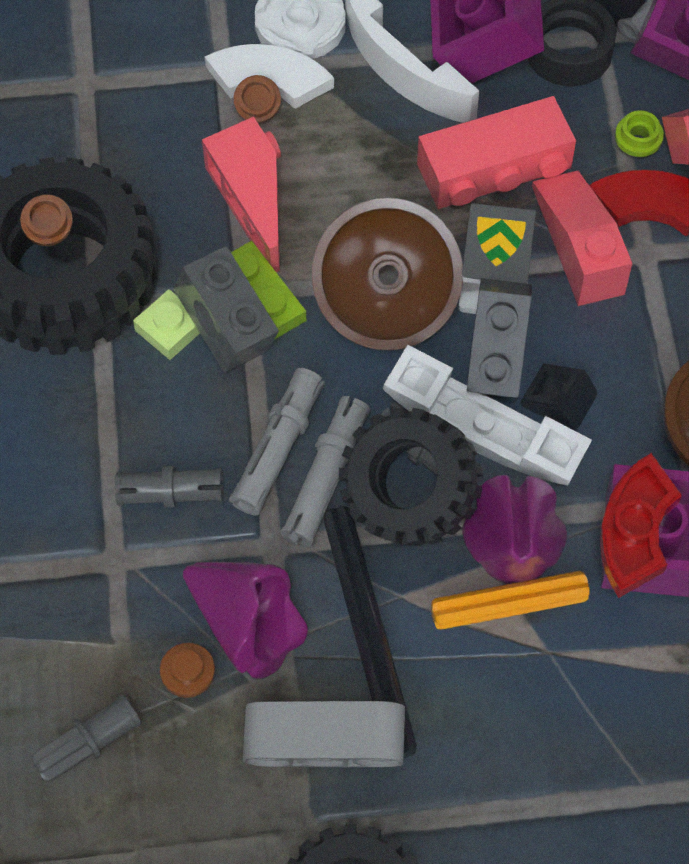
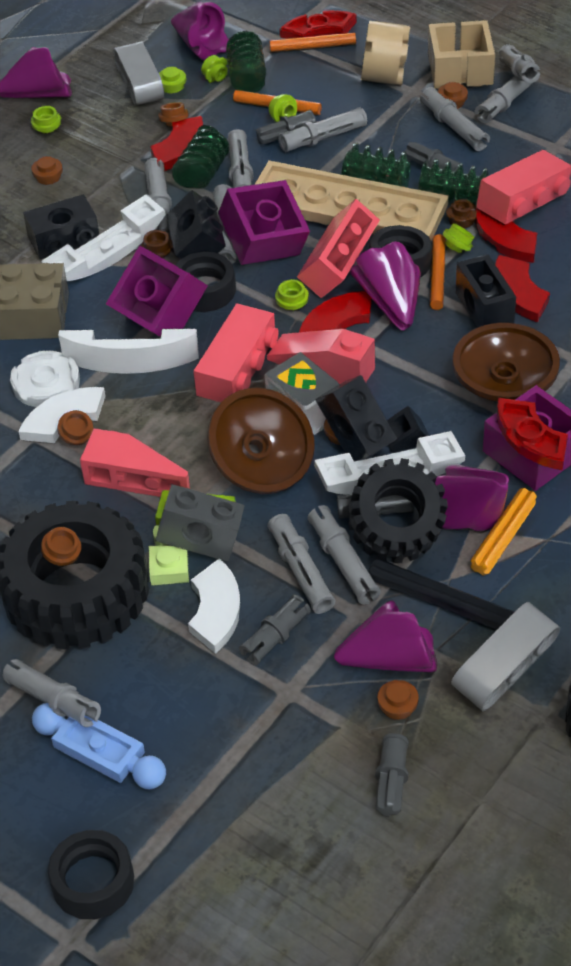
camera: 45 degrees left, 15 degrees down
(158, 410) = (218, 606): none -> white tile

